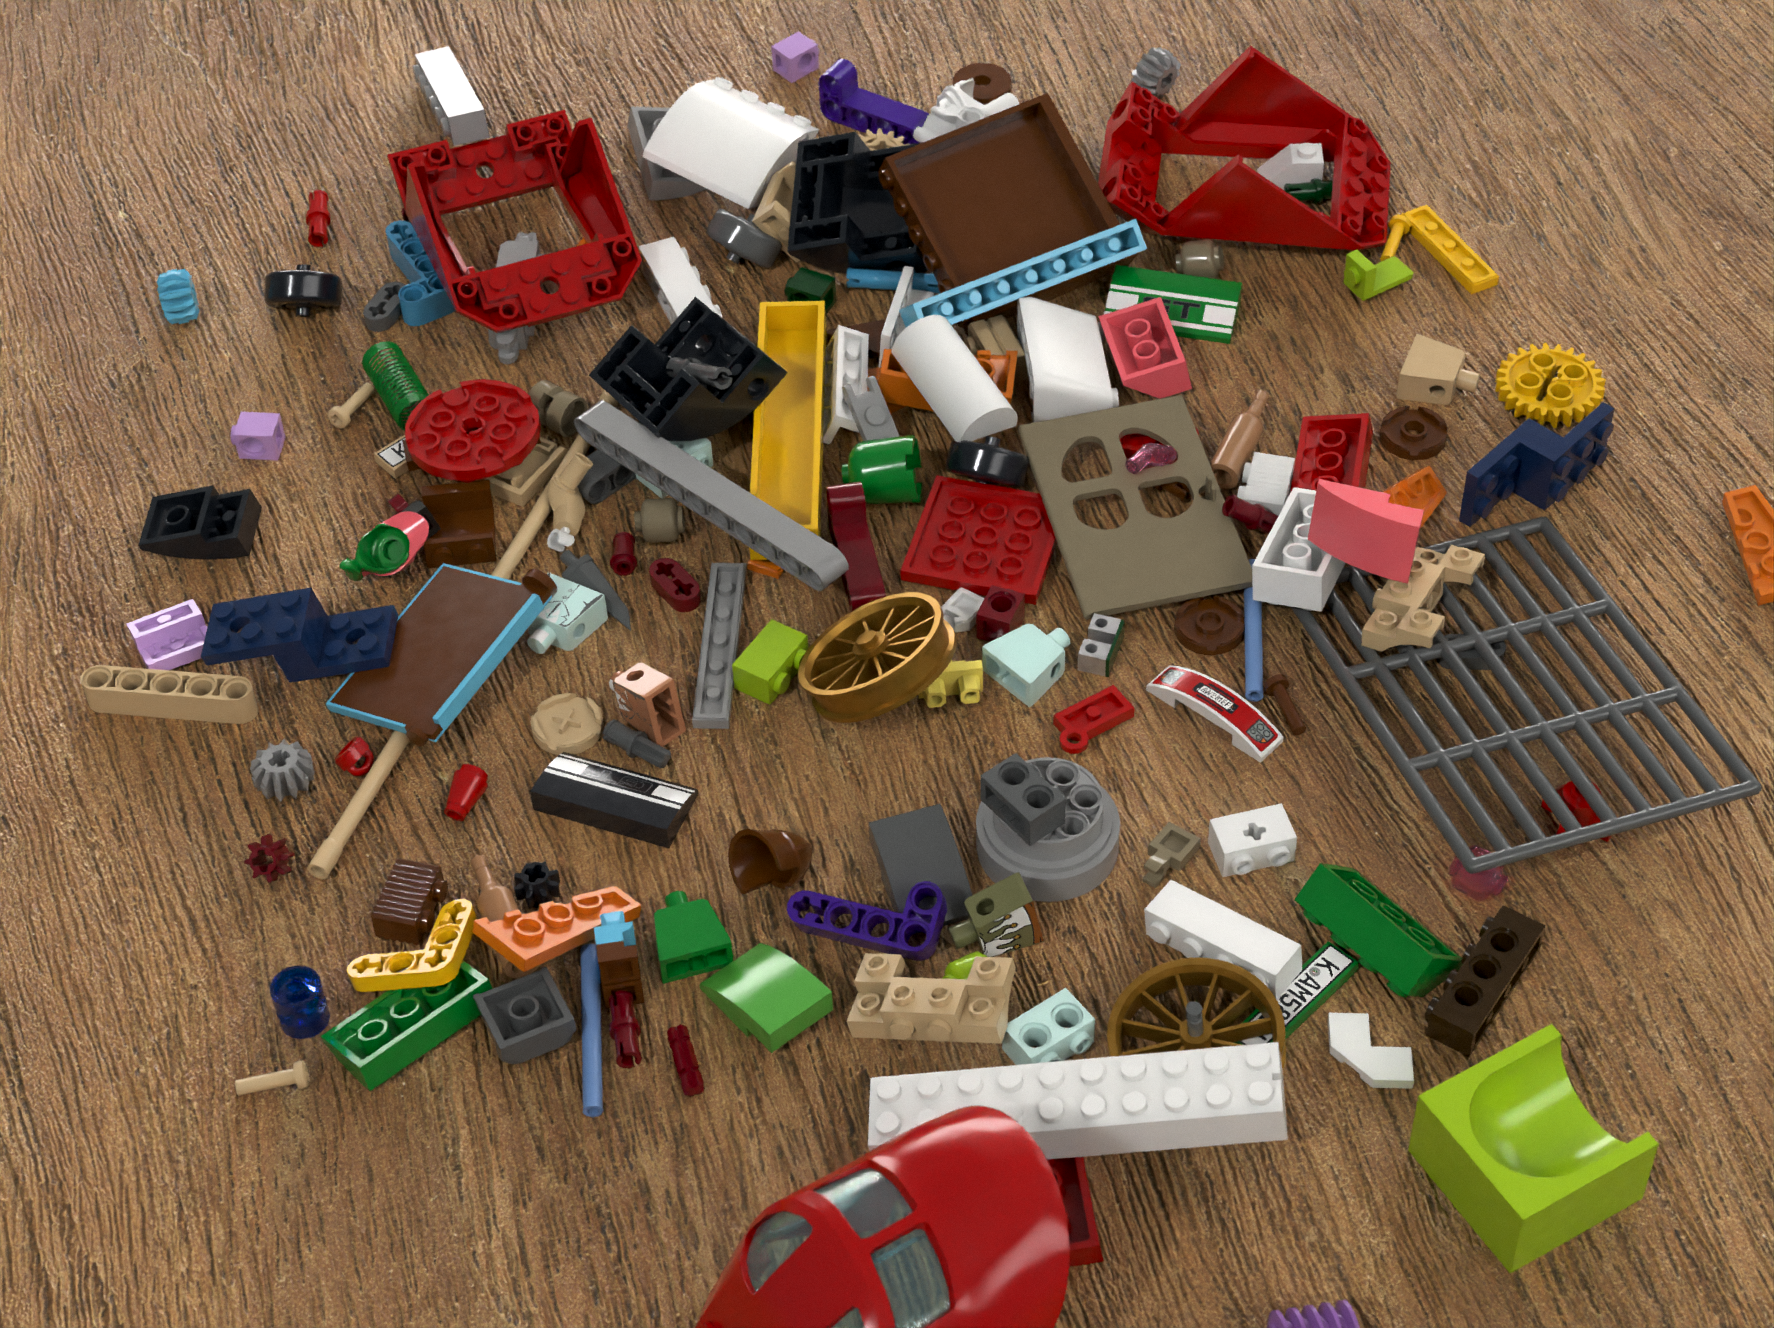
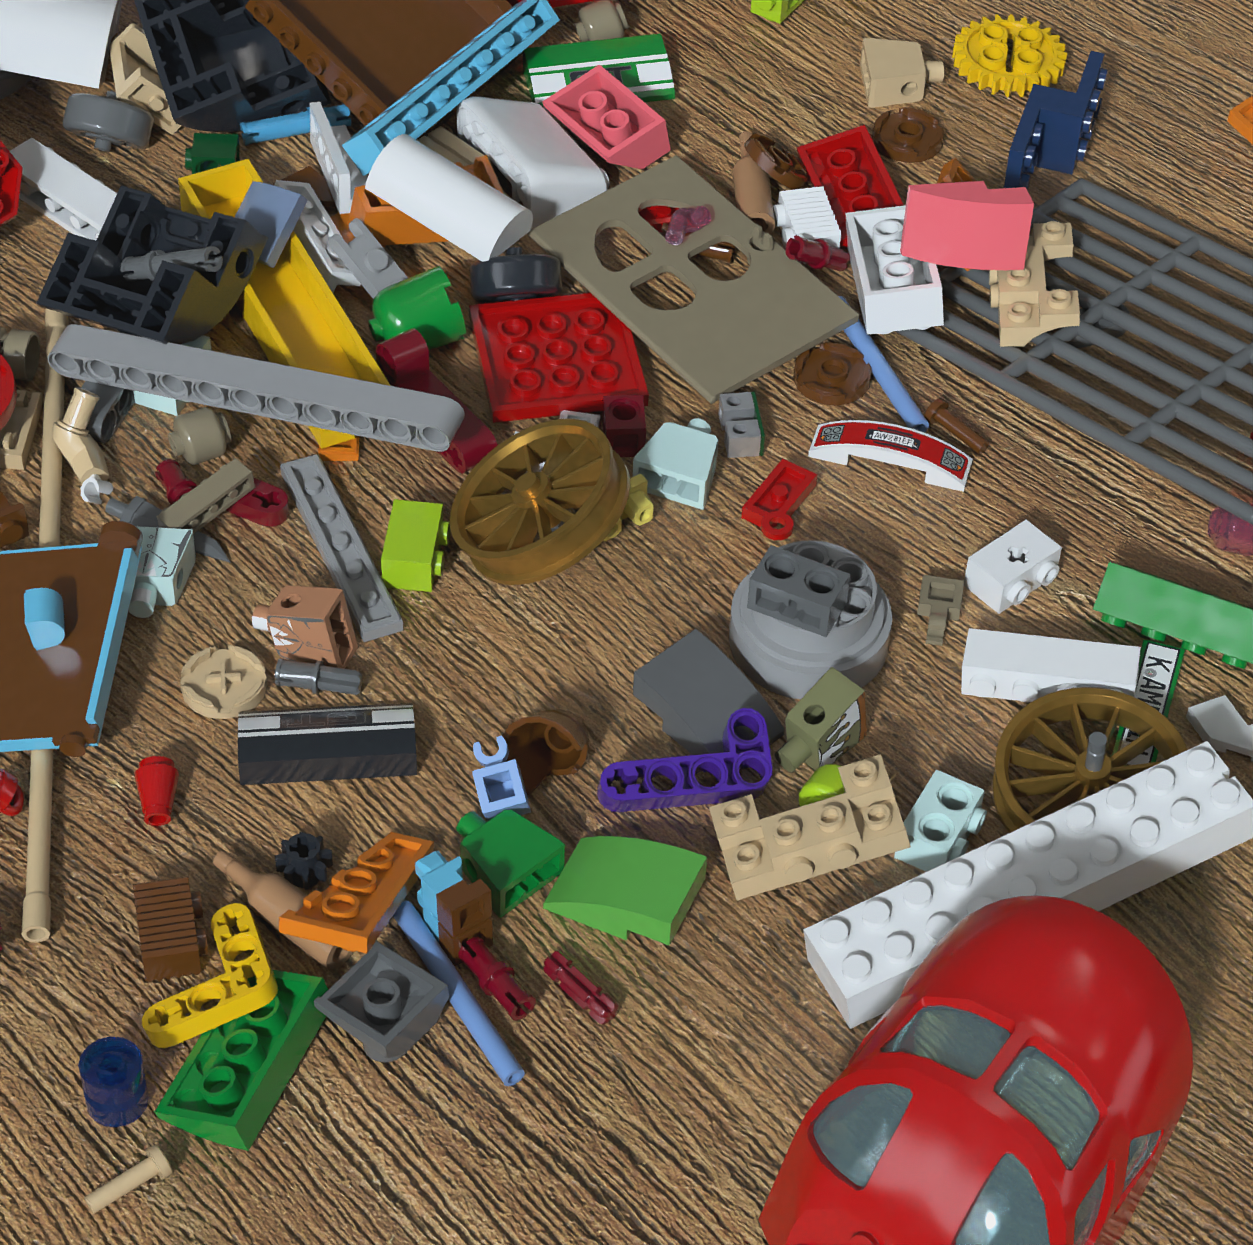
camera: 30 degrees left, 0 degrees up
(446, 628) = (44, 617): none -> medium azure brick
(633, 574) = (208, 498): none -> dark tan piece
(713, 876) = (499, 783): none -> light blue brick
(804, 358) = (273, 214): none -> sand blue slope
(1270, 425) = (777, 163): none -> reddish brown tile

